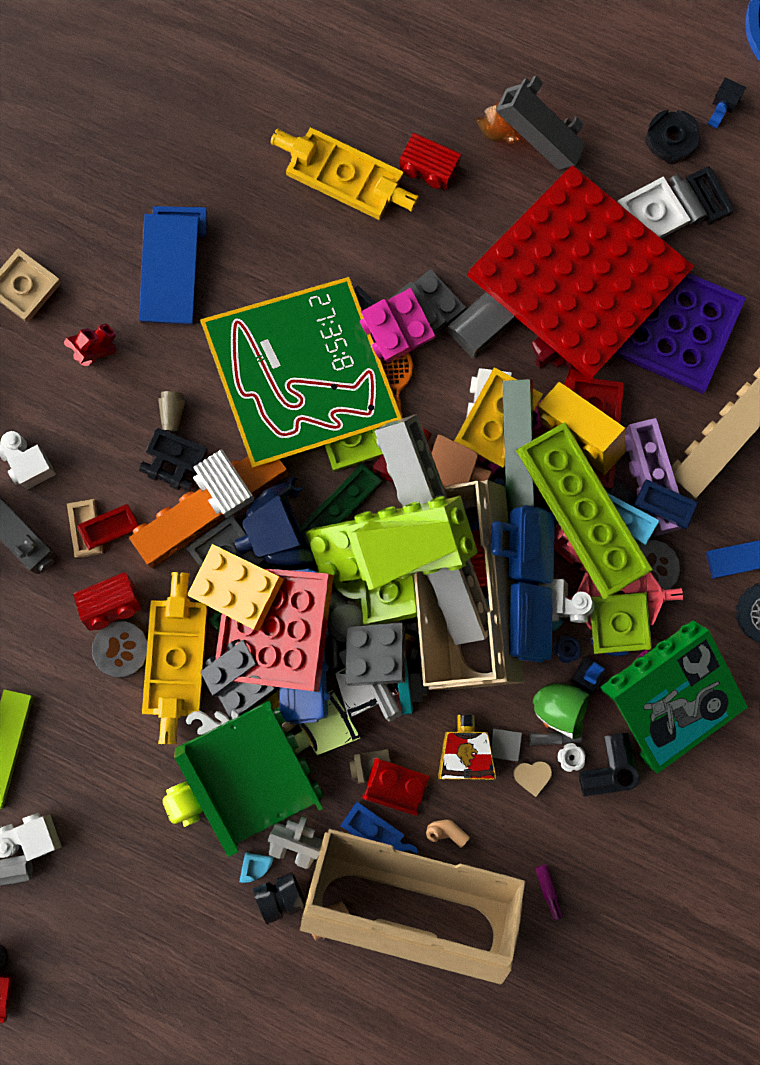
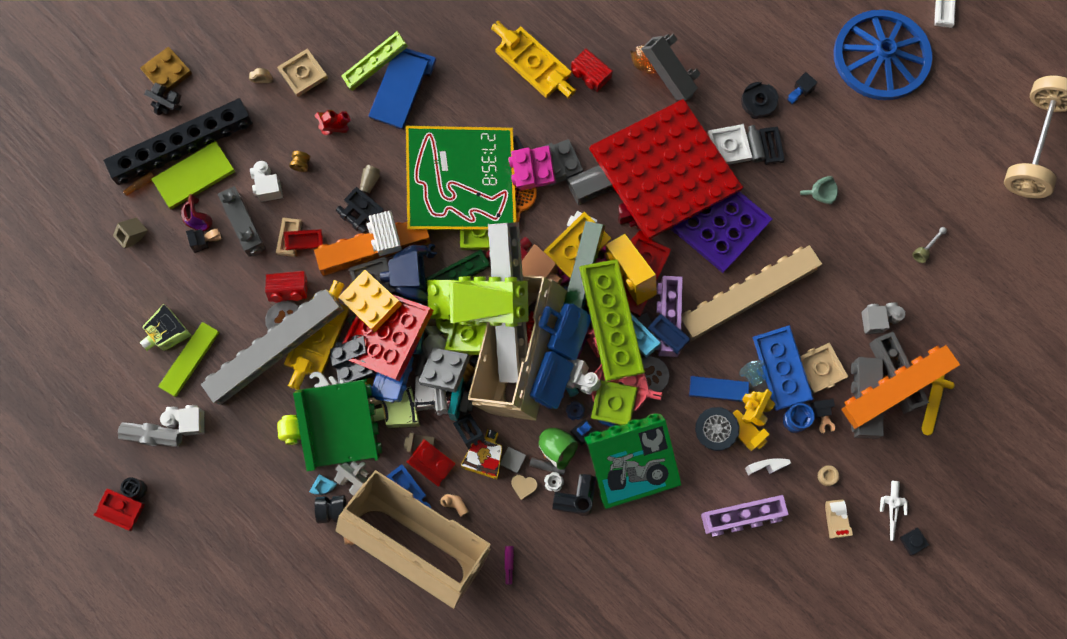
camera: 20 degrees right, 5 degrees down
(63, 415) = (299, 161): none -> pearl gold wheel
(118, 696) = (272, 347): none -> light grey brick
(121, 238) = (374, 61): none -> lime tile
(448, 738) = (473, 439): none -> black tile

